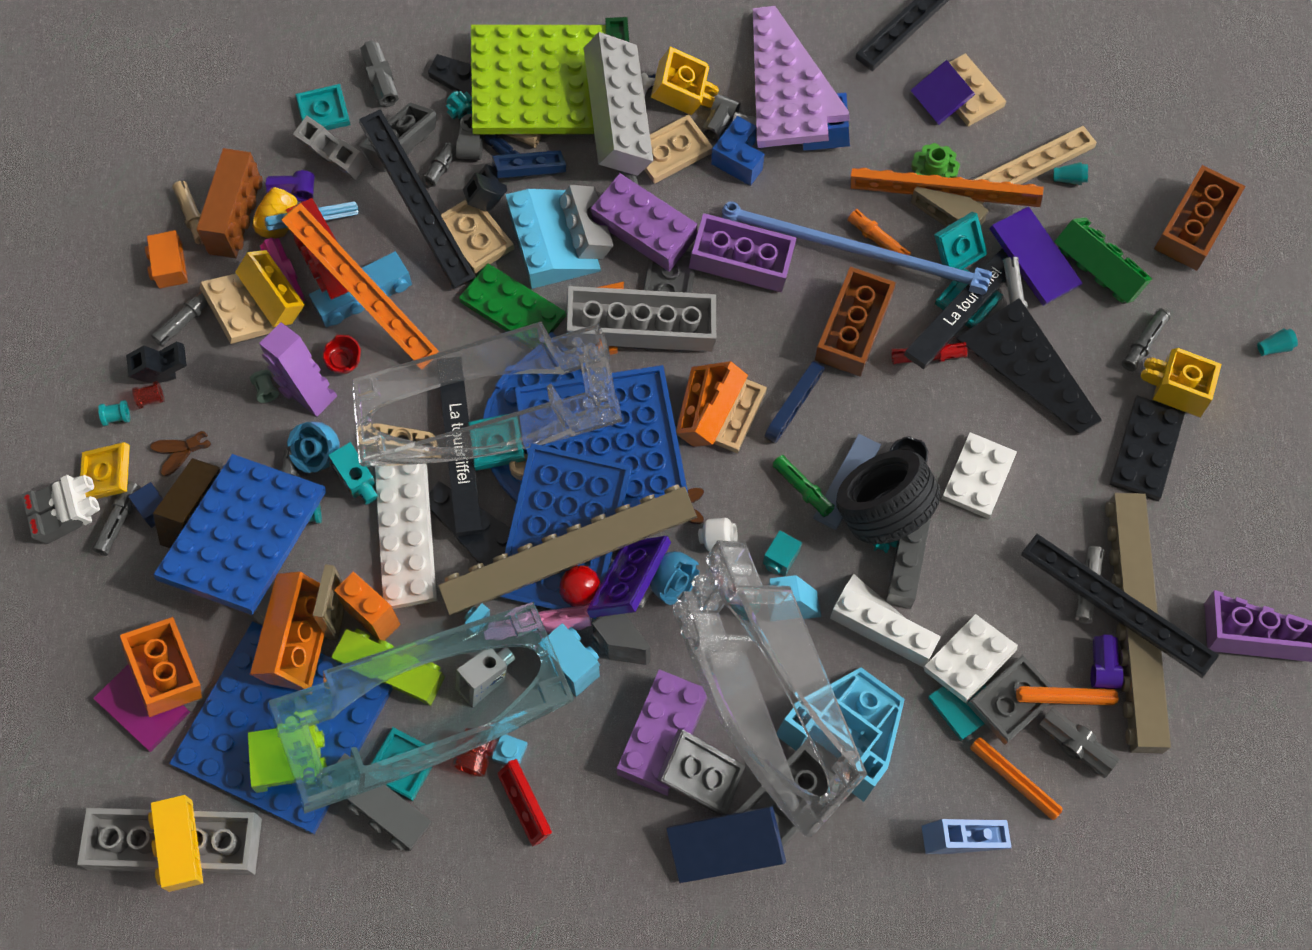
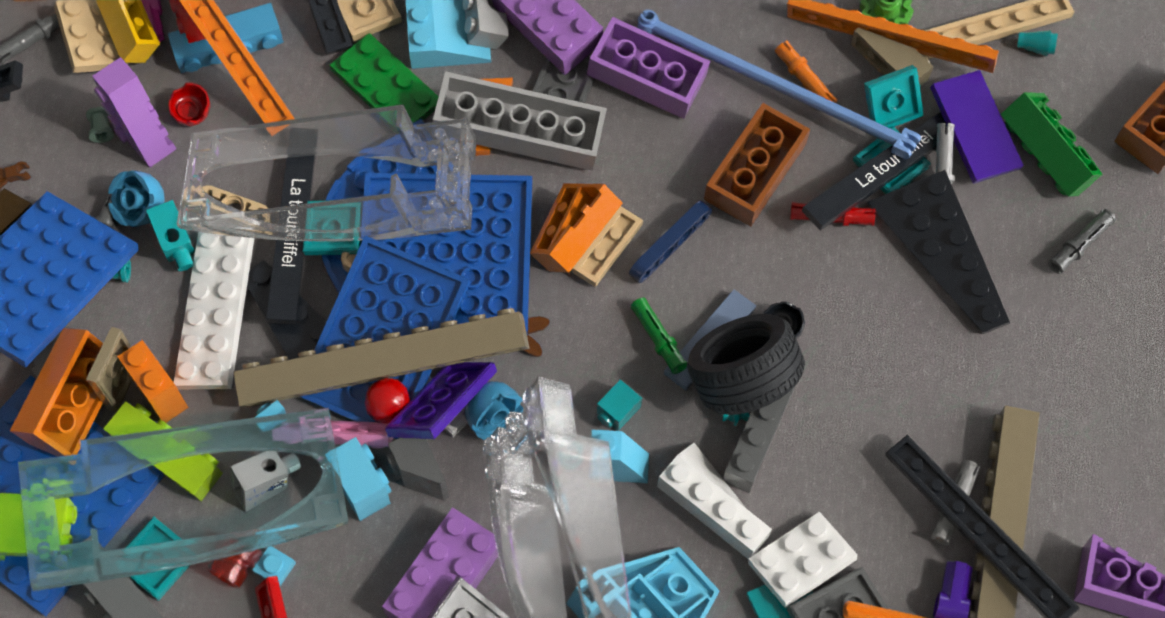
camera: 10 degrees right, 0 degrees up
(715, 530) = (554, 367): white head -> none
(979, 475) = (858, 359): white plate -> none
(1147, 448) = (1056, 362): black plate -> none
(1183, 380) = (1111, 294): yellow hinge -> none

